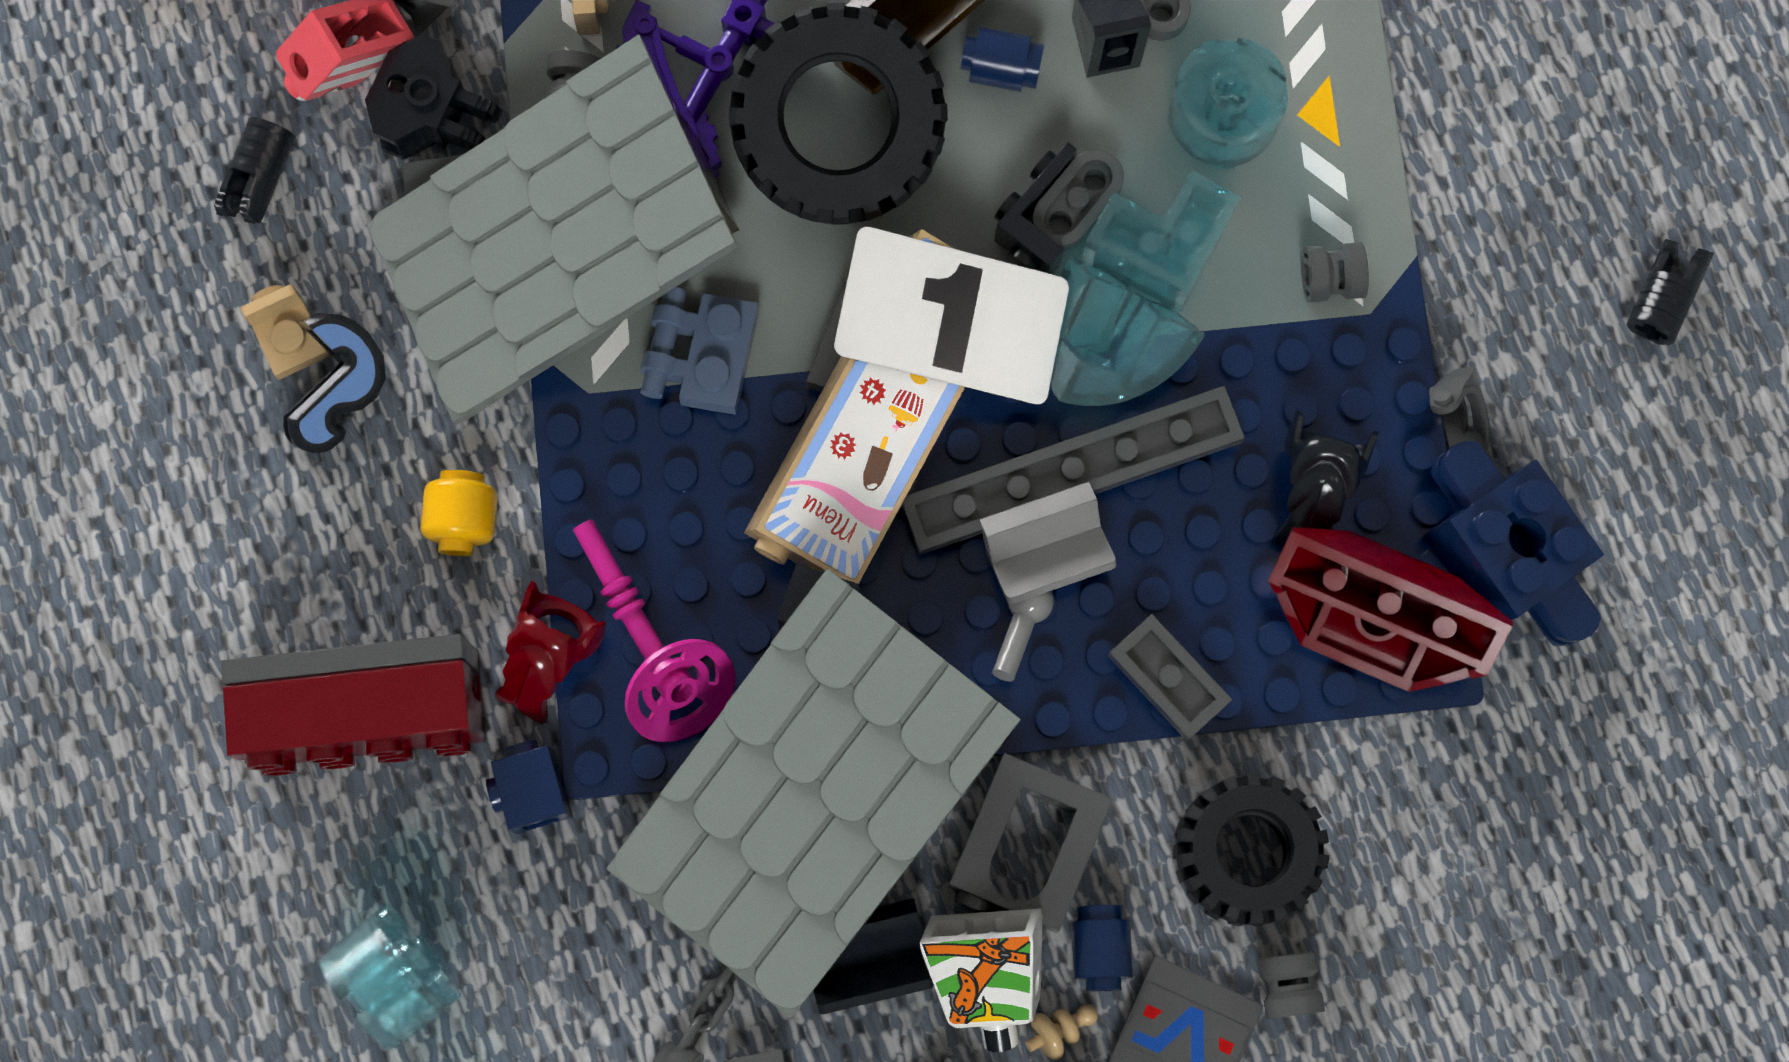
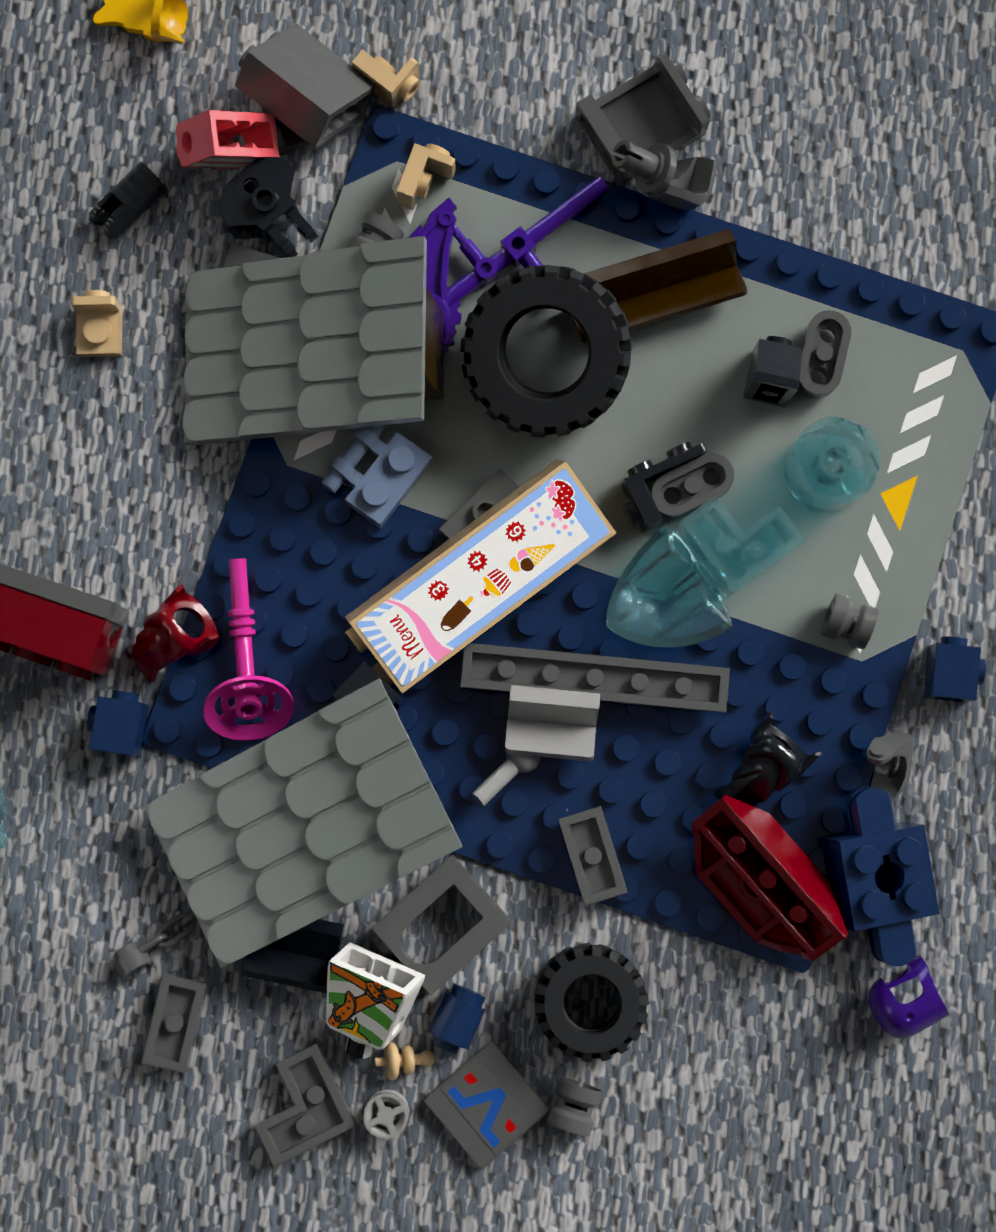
camera: 25 degrees right, 5 degrees up
(344, 389) = (116, 387): animal -> none
(459, 512) = (158, 509): yellow head -> none
(951, 316) = (558, 532): white sticker -> none
(1002, 59) = (686, 359): dark blue brick -> none
(1480, 275) = (953, 670): none -> dark blue brick
(1623, 697) = (911, 1018): none -> dark purple helmet

